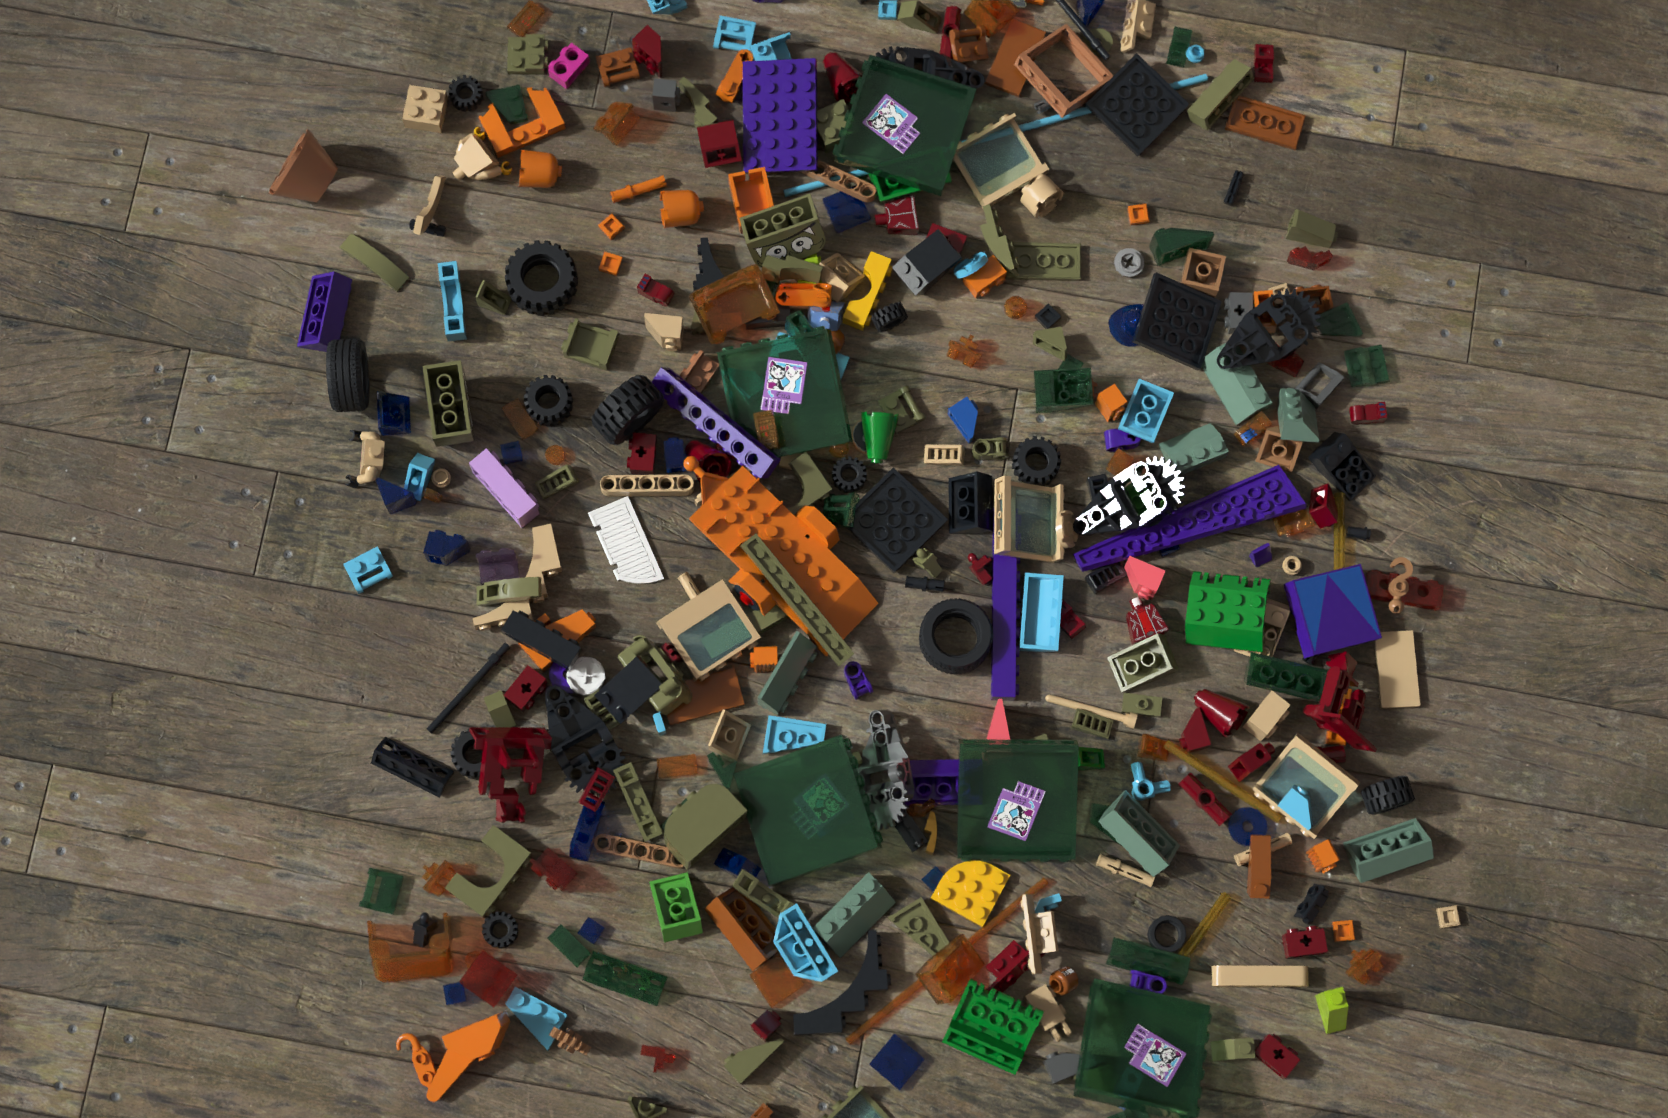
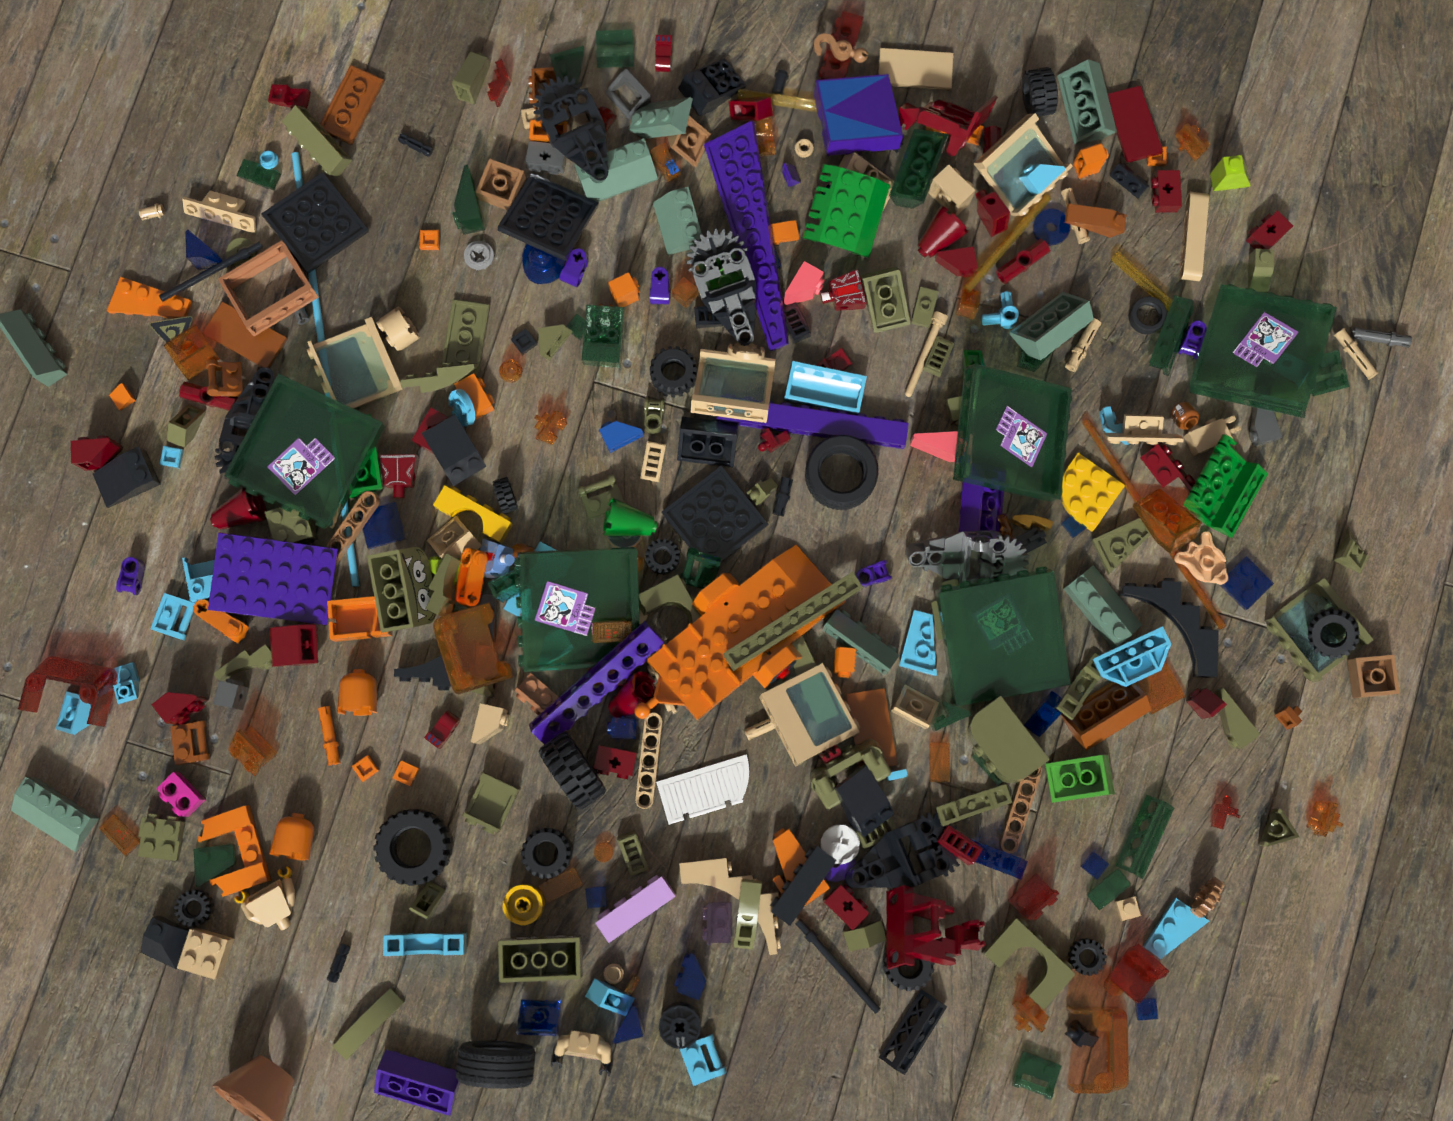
camera: 80 degrees left, 5 degrees up
(398, 553) = (679, 1013): none -> black wheel
(427, 213) = (327, 963): tan tile -> none
(433, 70) = (164, 941): none -> black slope
(462, 1046) = (1202, 1004): orange slope -> none
(499, 375) = (514, 898): none -> yellow brick
(552, 967) = (1127, 908): none -> tan plate
(913, 1014) = (1204, 560): none -> light nougat tile
(1127, 354) = (573, 271): none -> dark purple piece
(1146, 410) = (637, 257): medium azure slope -> none
(1198, 553) = (784, 232): none -> orange slope
(1373, 902) = (1134, 124): none -> dark red tile
(1448, 916) = (1151, 61): tan tile -> none

